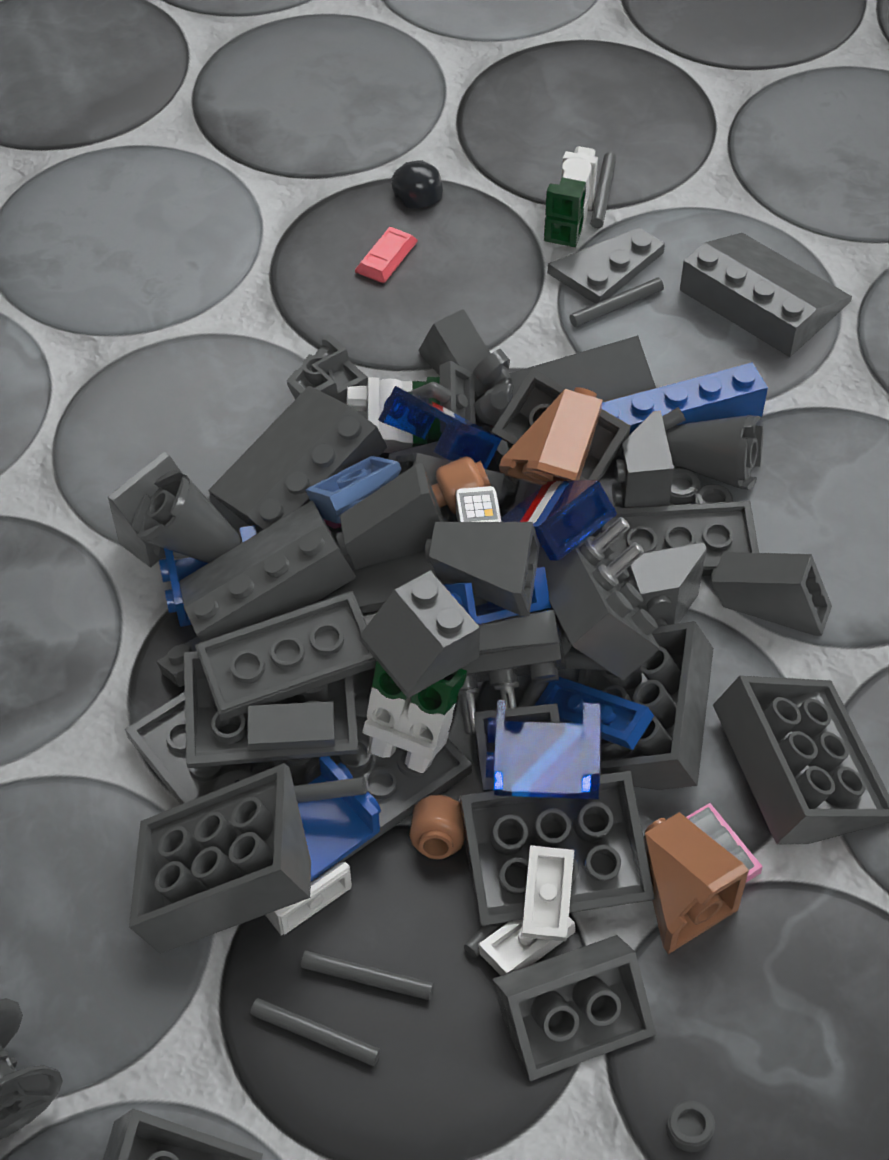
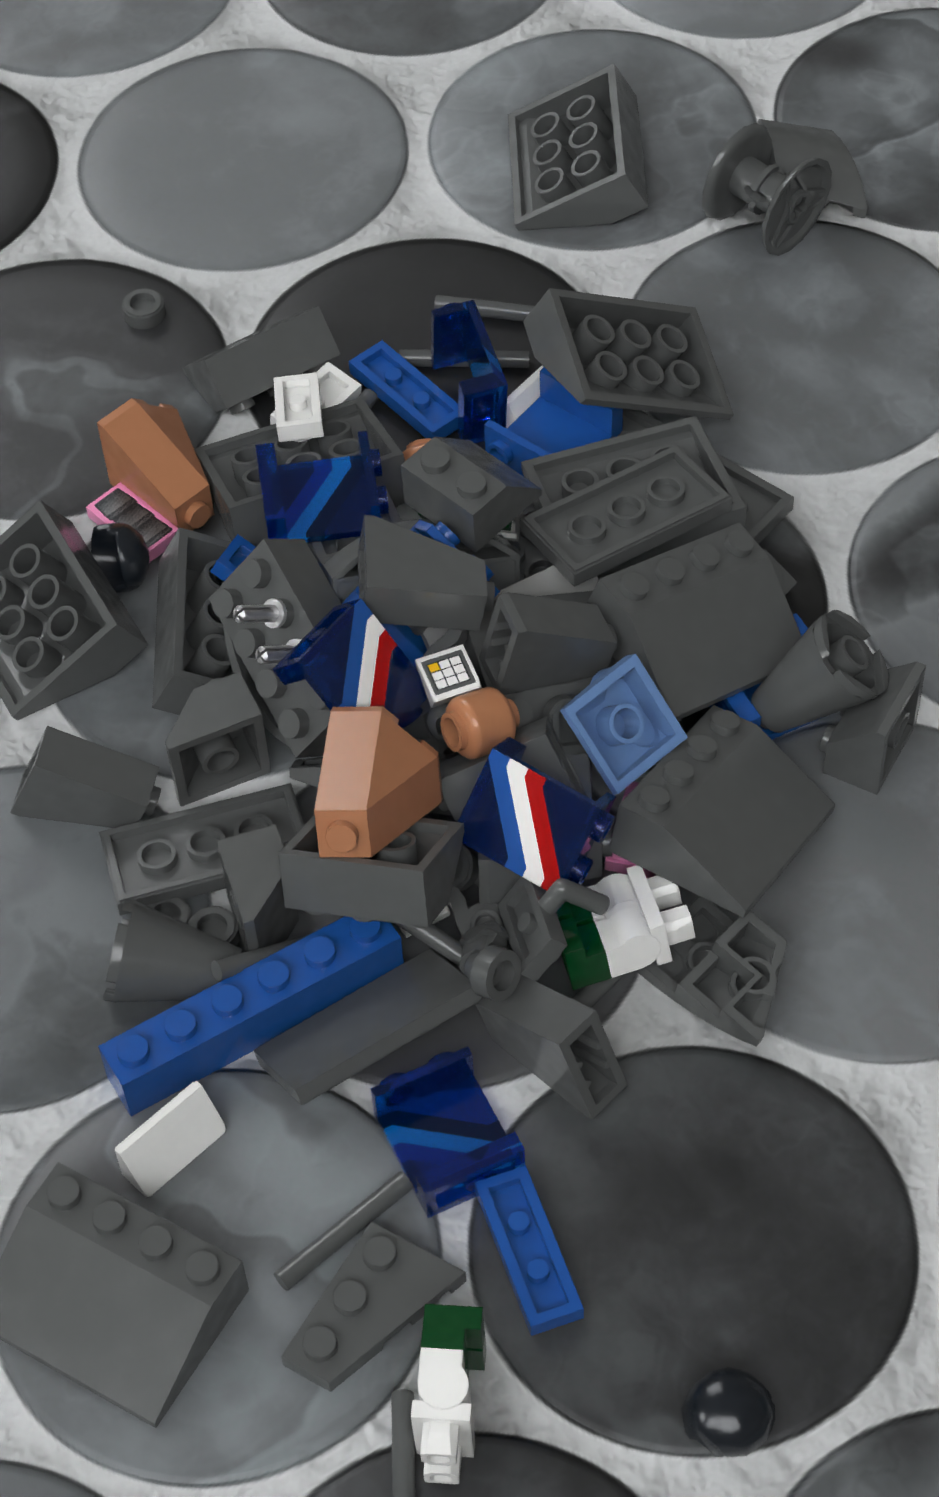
camera: 170 degrees right, 0 degrees up
(291, 726) = (595, 455): dark grey tile -> none
(330, 789) = (568, 427): dark grey bar -> none
(373, 874) = (461, 337): none -> clear blue panel
(386, 255) = (732, 1256): coral tile -> none
(435, 935) = (406, 390): none -> blue plate
(507, 268) = (529, 1250): none -> blue plate
(538, 325) = (444, 1130): none -> clear blue panel
(725, 790) = (120, 555): none -> black hair
(732, 356) = (170, 1140): none -> white slope

